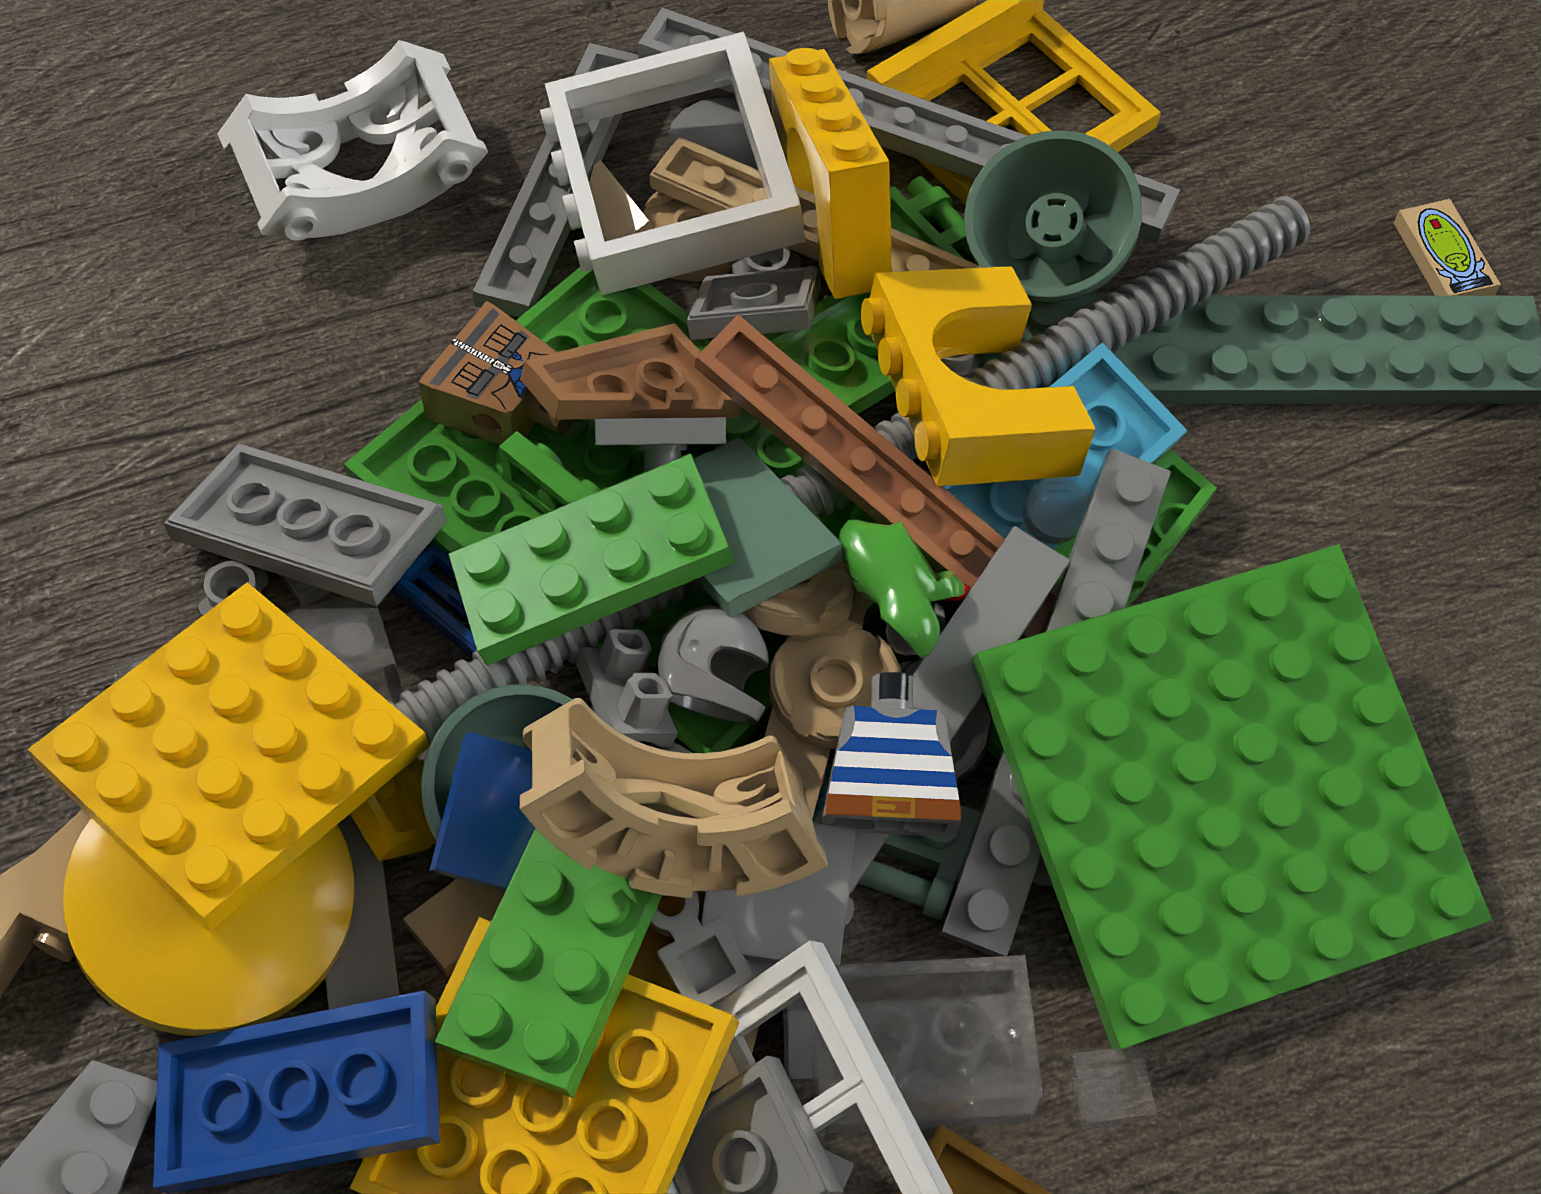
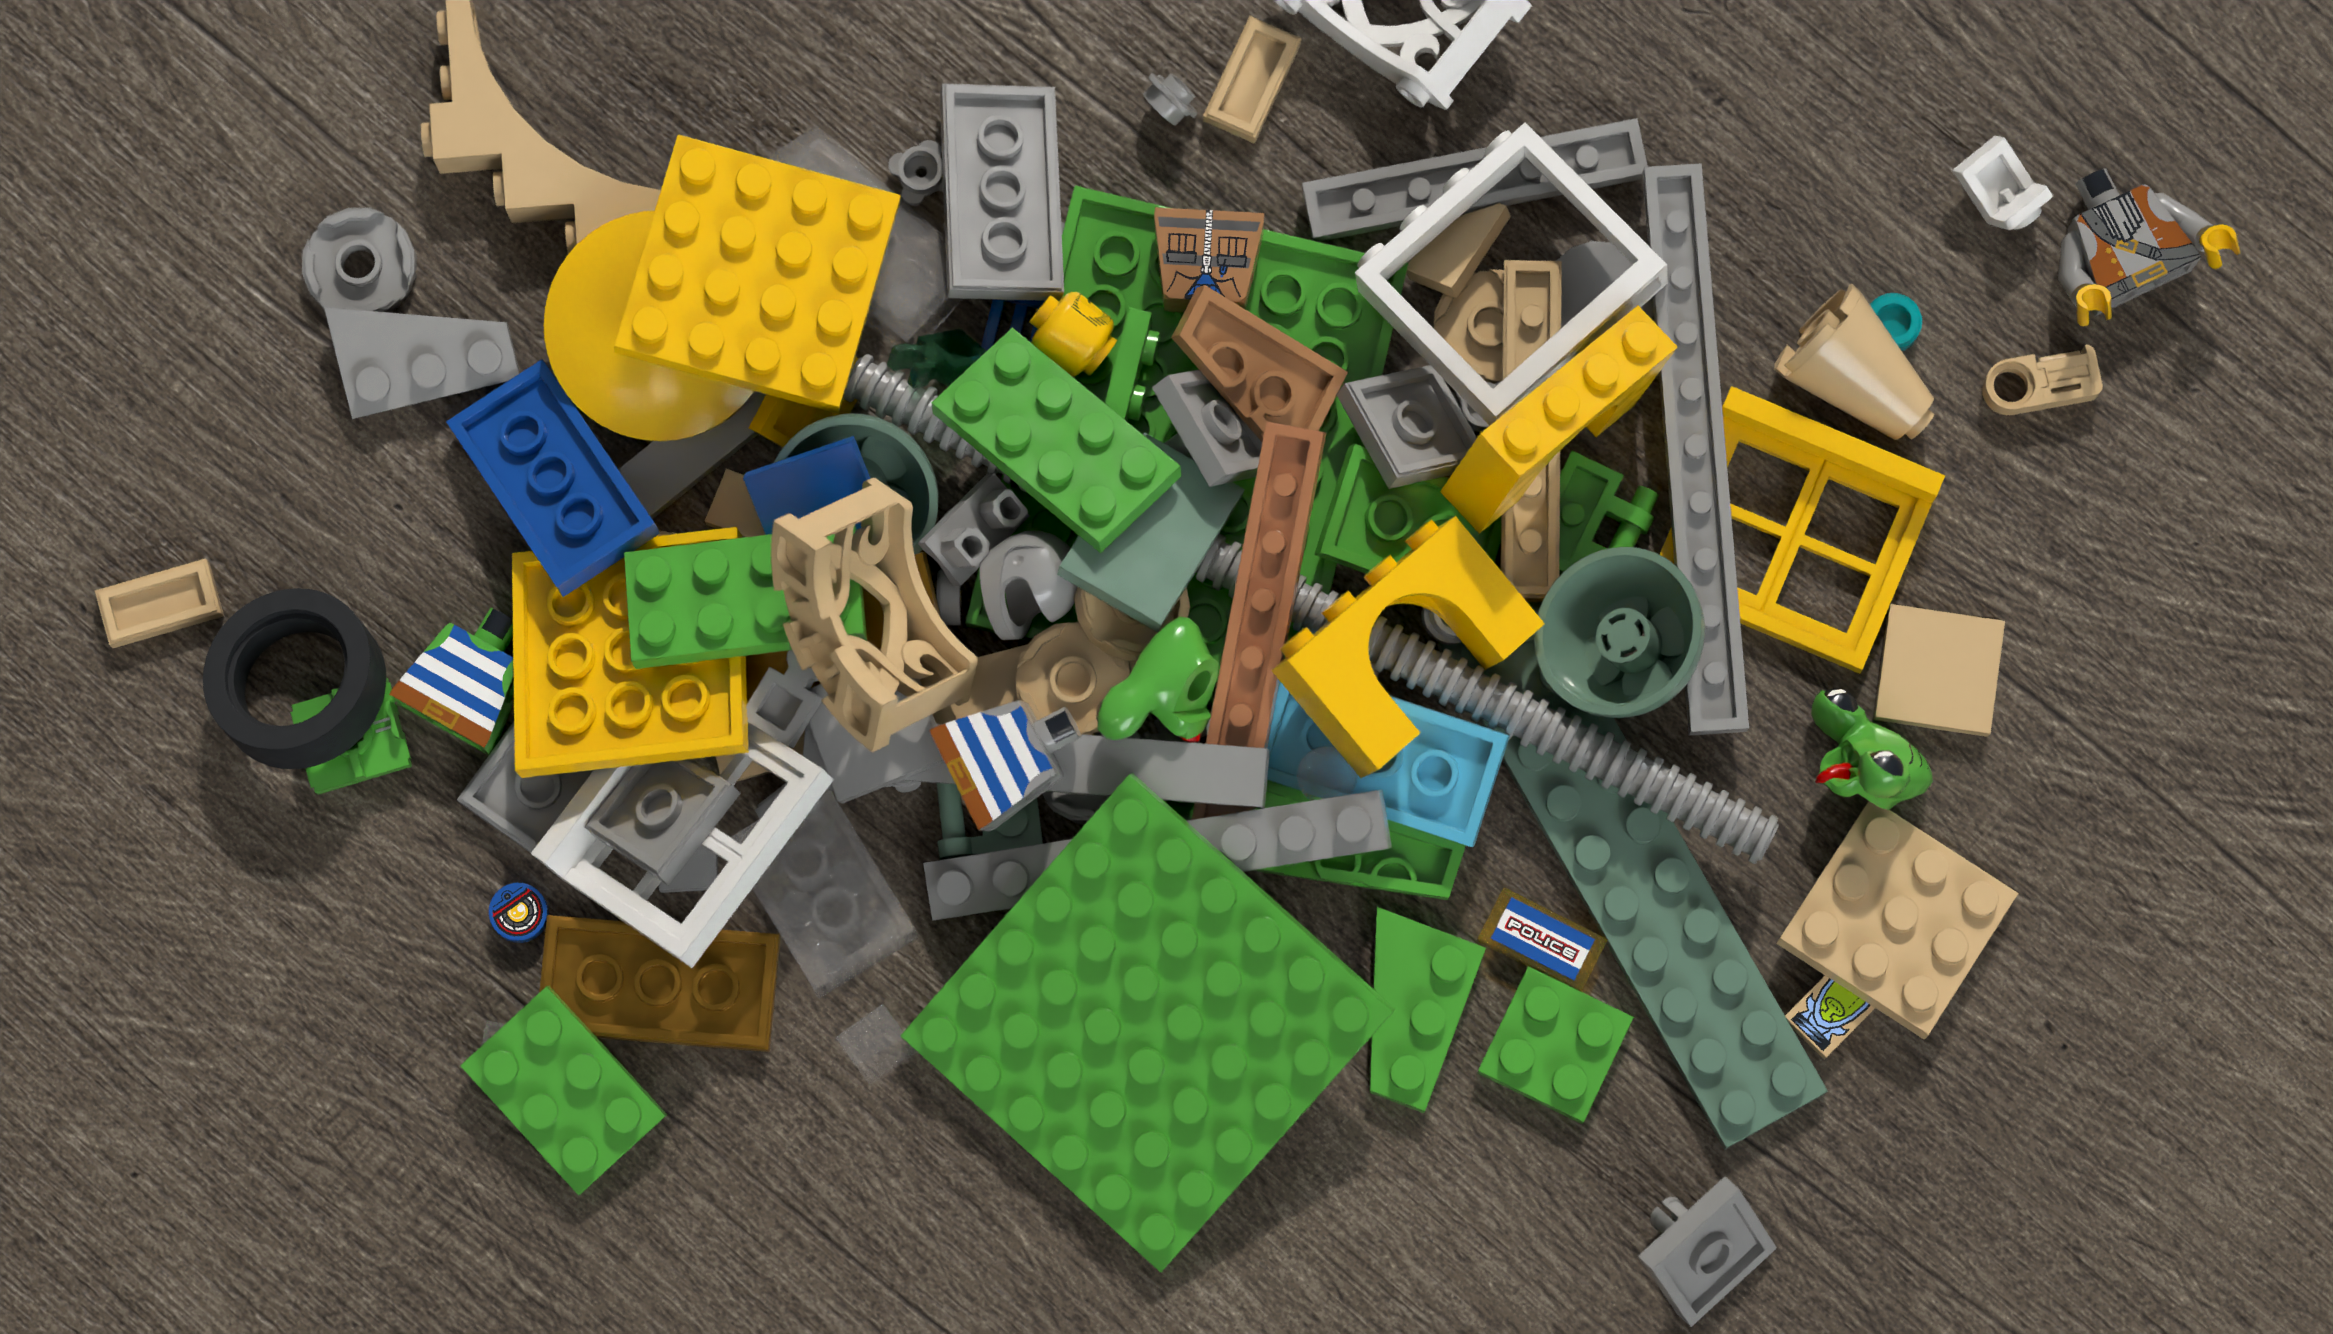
camera: 65 degrees right, 20 degrees up
(319, 356) = (1170, 98): none -> light grey plate
(349, 297) = (1252, 79): none -> tan tile
(433, 647) = (936, 357): none -> clear green plate
(484, 509) = (1073, 333): none -> yellow head
(1188, 70) = (1939, 670): none -> tan tile
(1251, 131) = (1869, 757): none -> bright green head
(1282, 529) = (1427, 983): none -> bright green wing
(1287, 444) = (1541, 939): none -> tile
(1394, 480) = (1555, 1045): none -> bright green plate
(1395, 184) = (1897, 919): none -> tan plate

